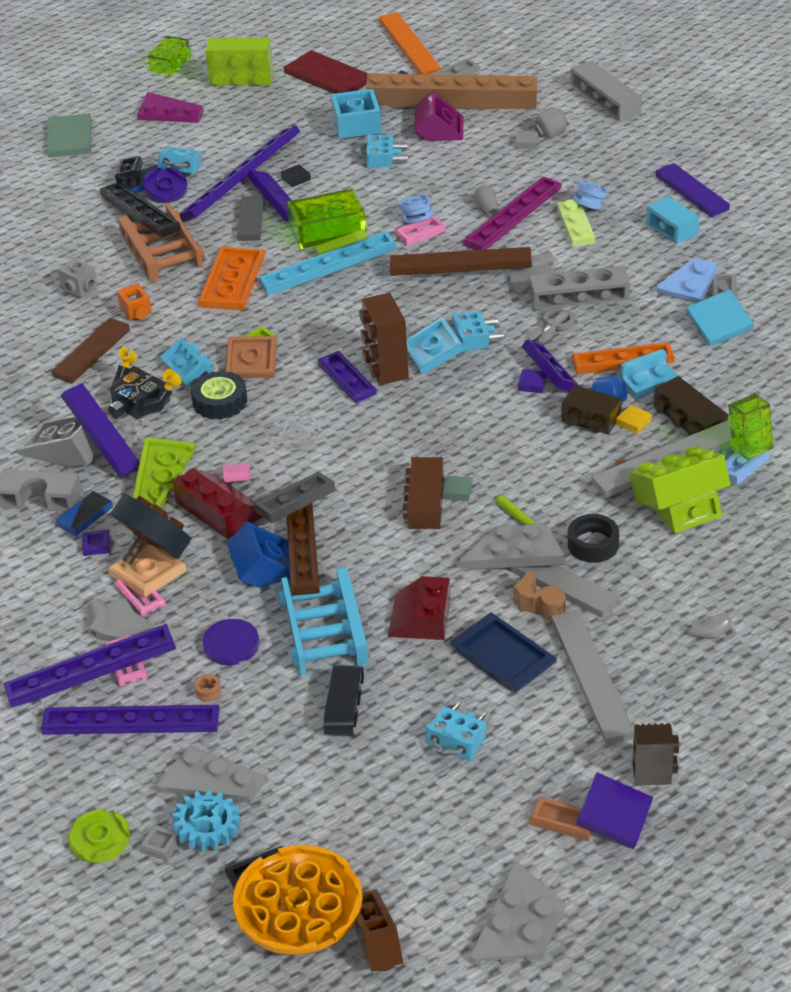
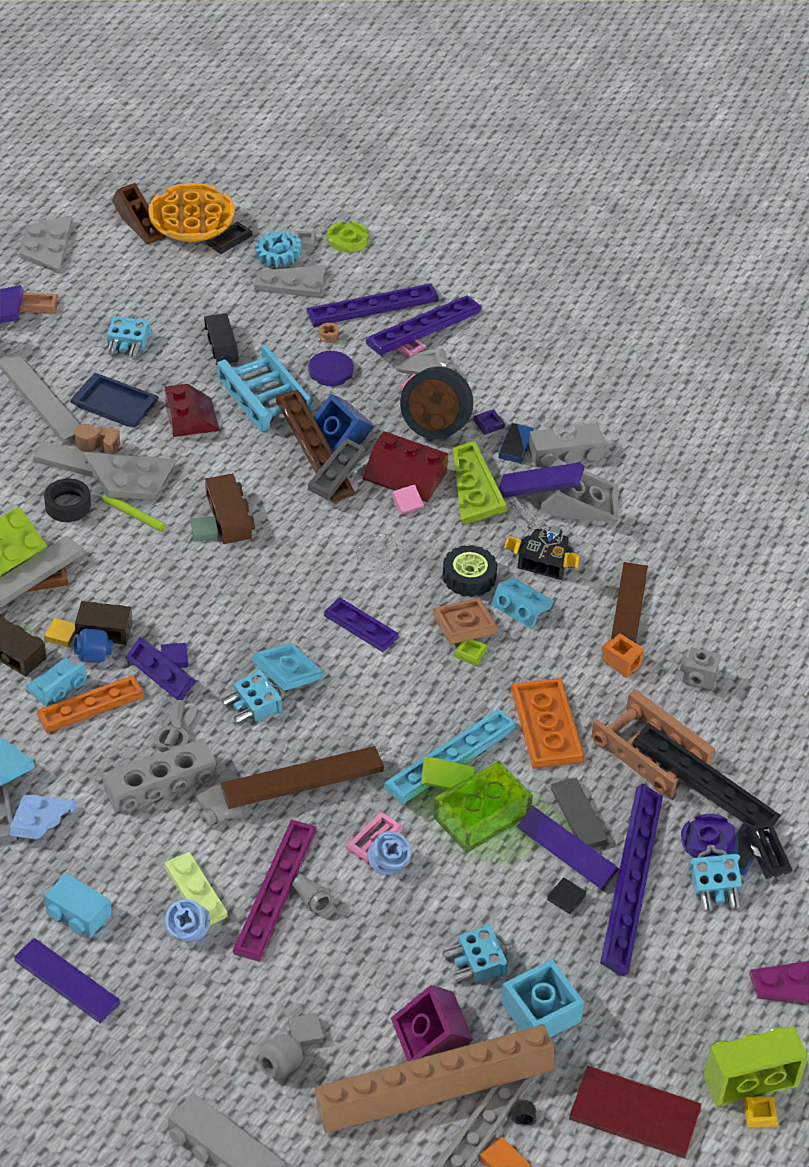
camera: 155 degrees right, 5 degrees up
(384, 338) = (328, 623): reddish brown brick -> none

